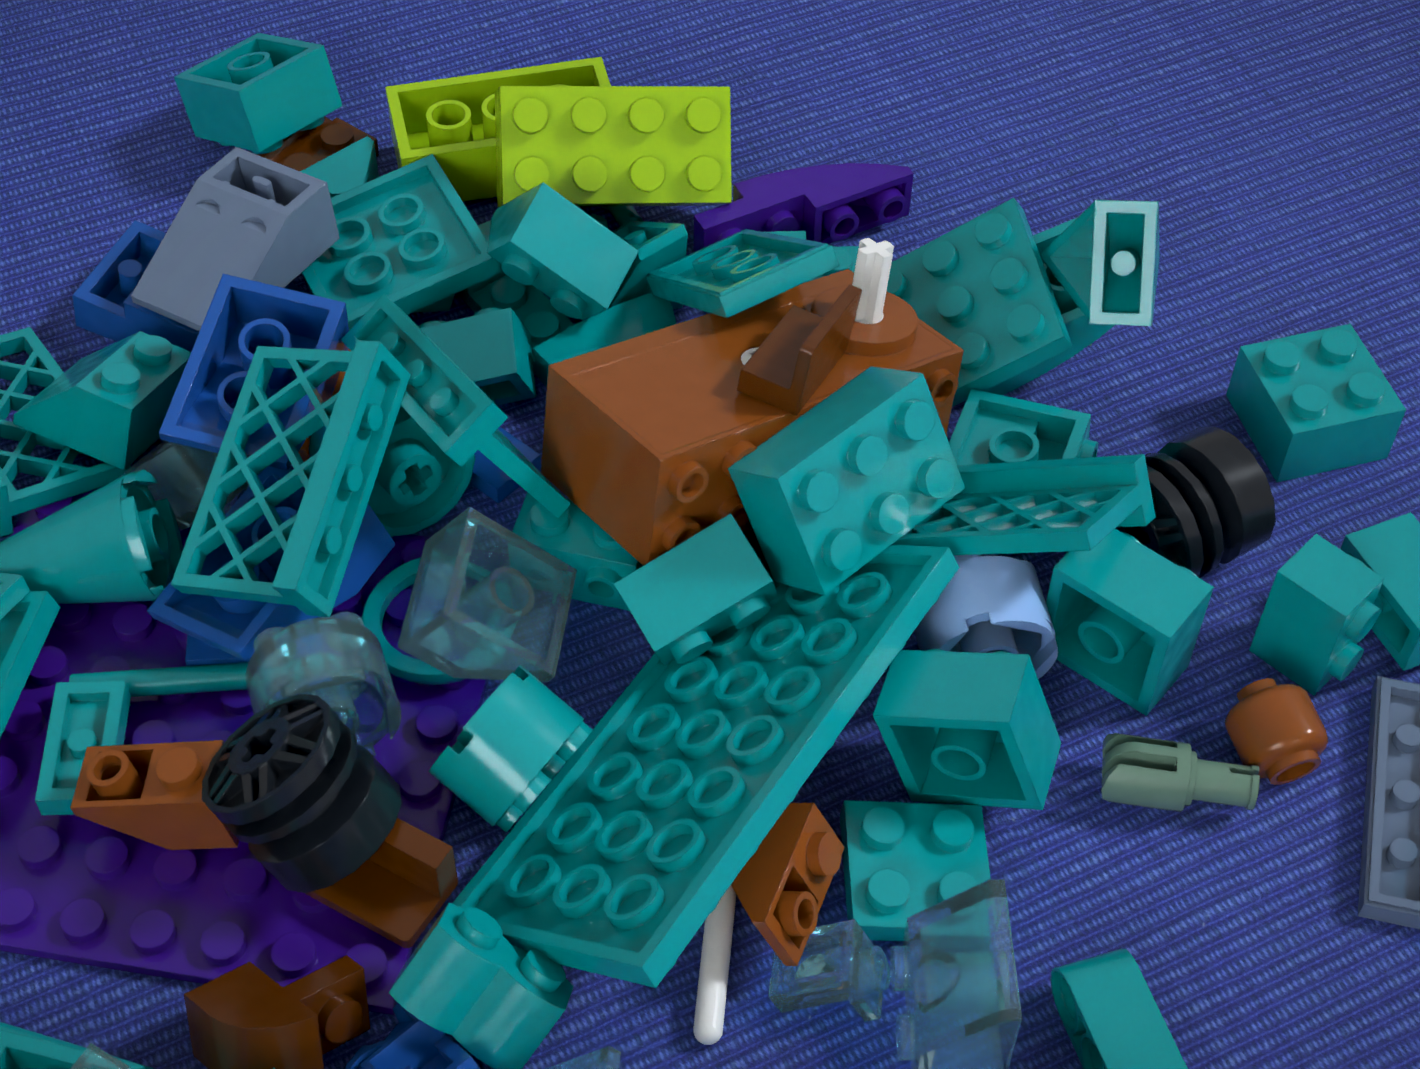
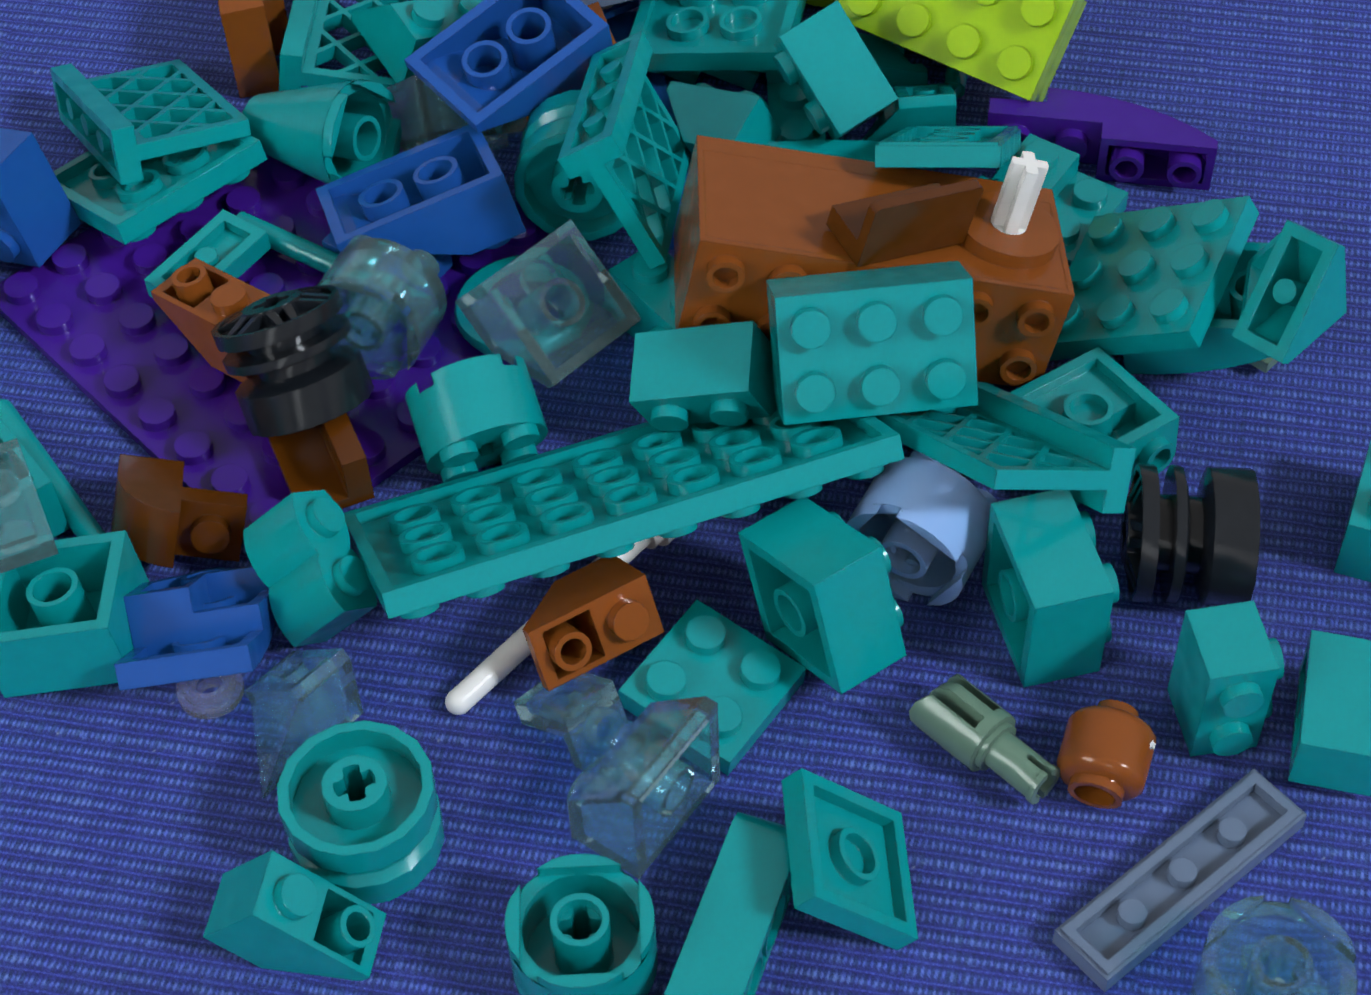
camera: 40 degrees right, 0 degrees up
(335, 479) = (464, 160): teal fence -> none
(1195, 962) = (848, 860): none -> teal plate

